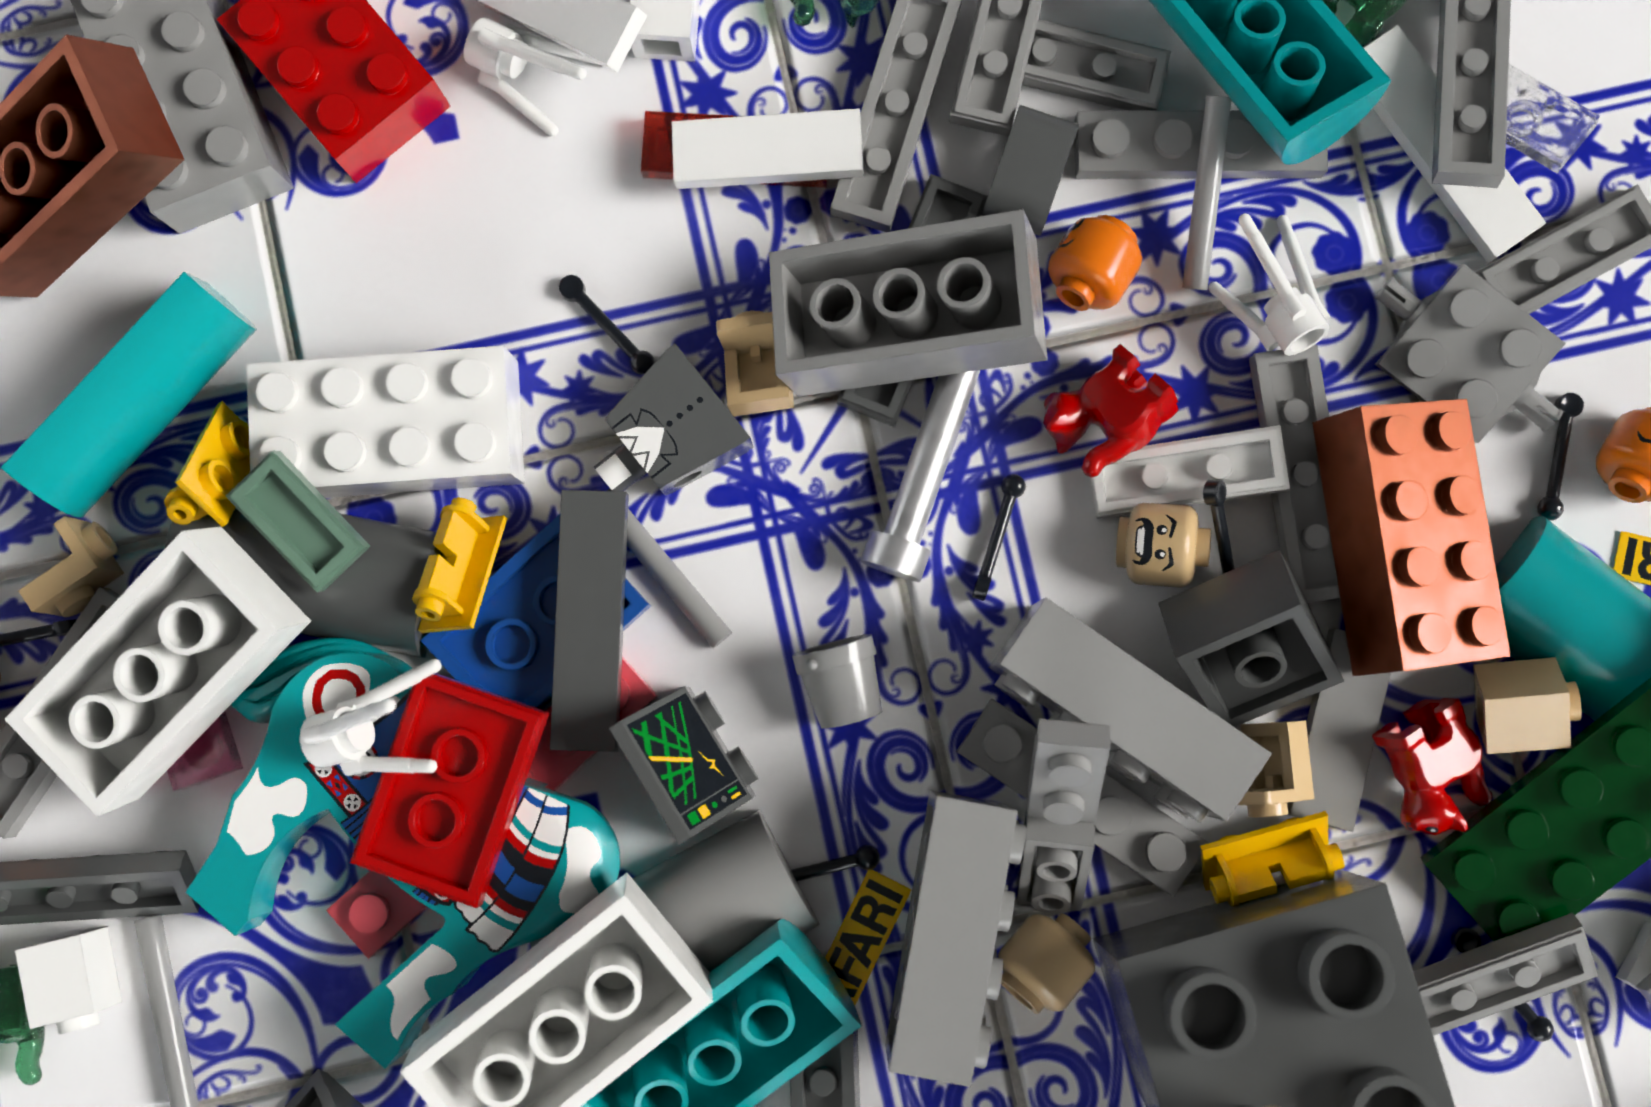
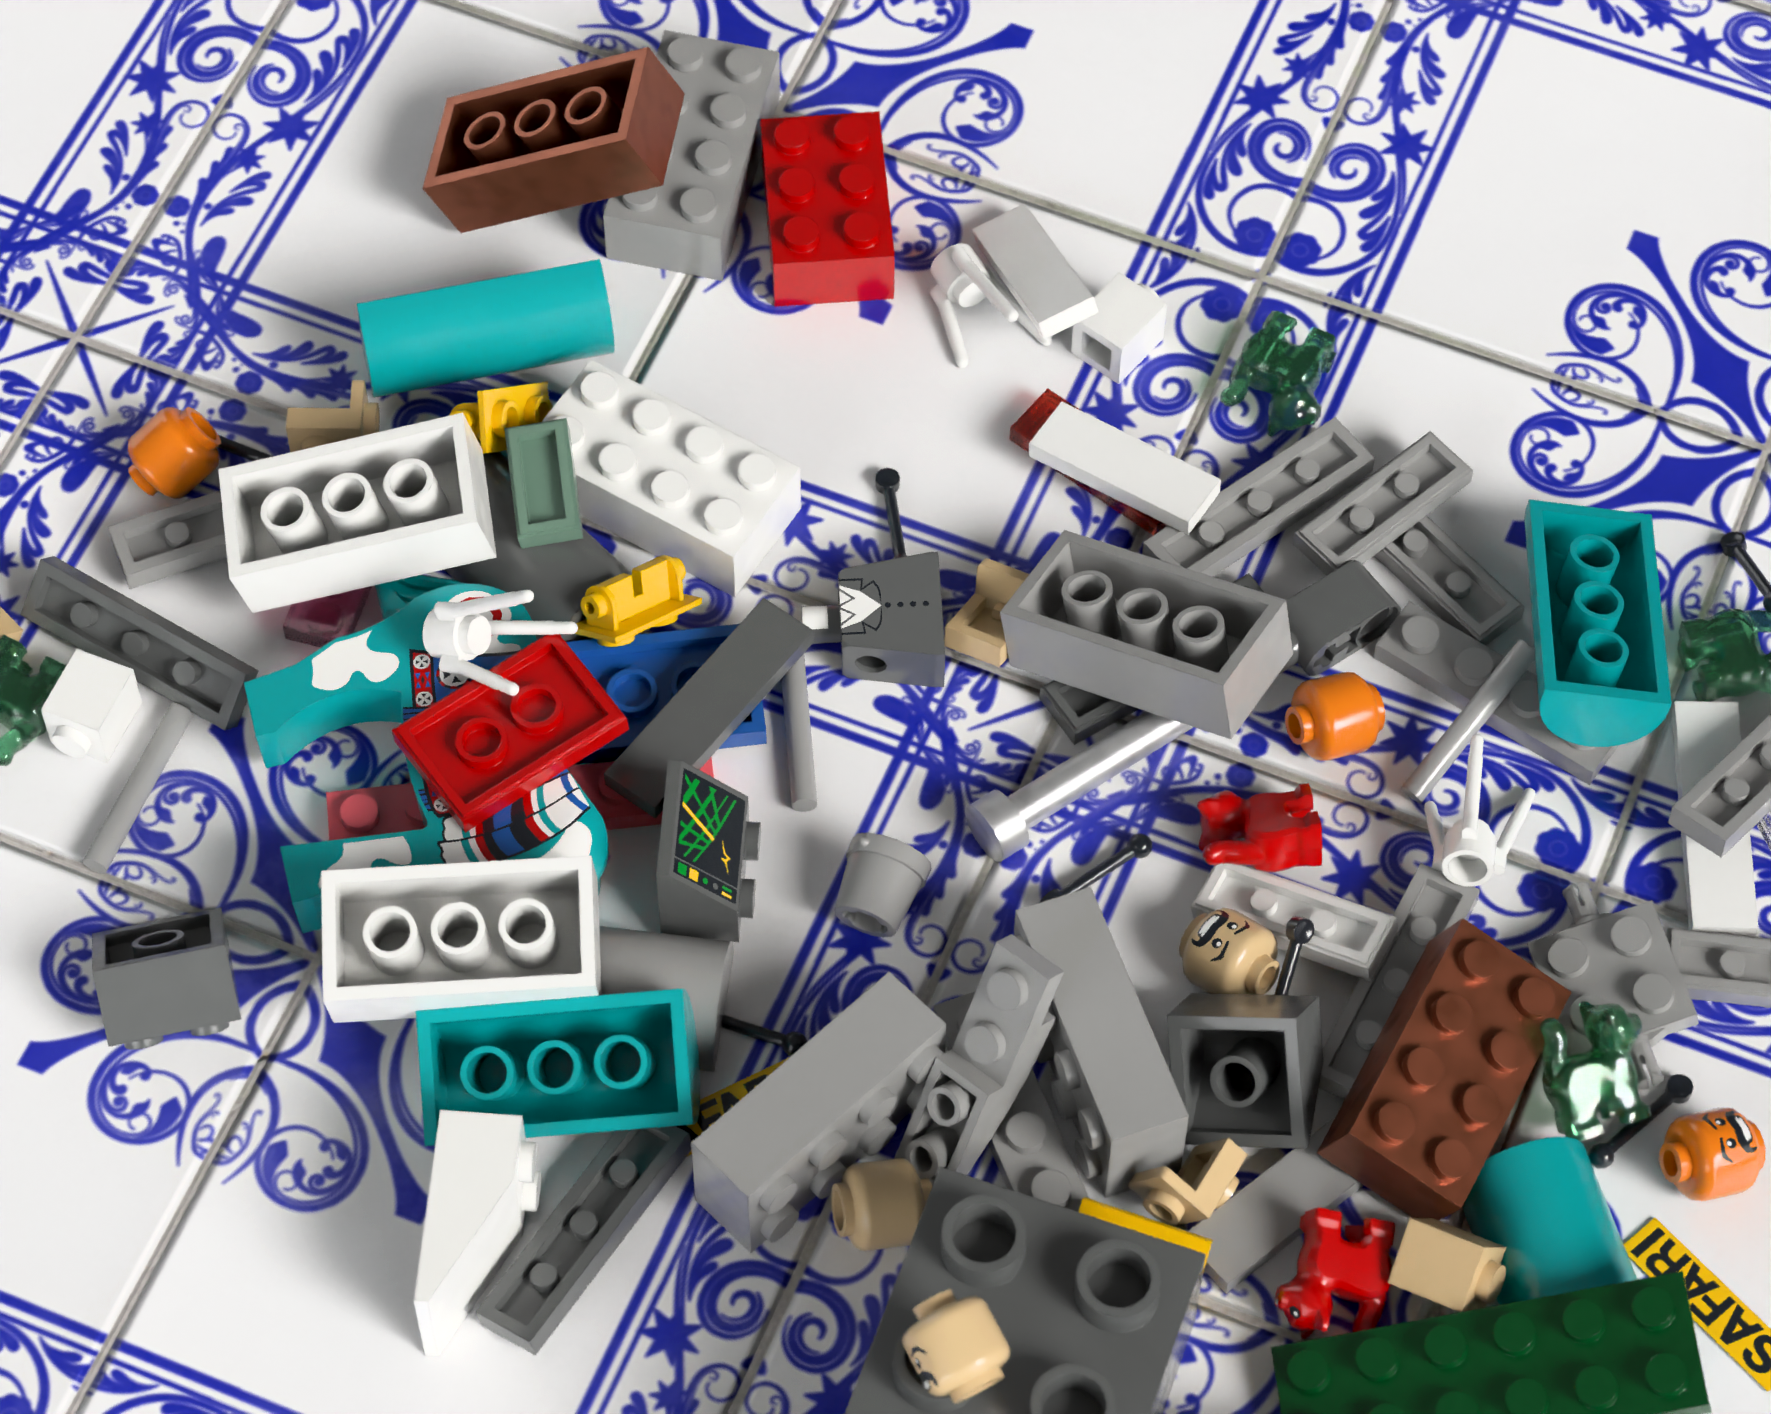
camera: 30 degrees right, 25 degrees down
(1528, 453) = (1596, 1079): none -> clear green animal

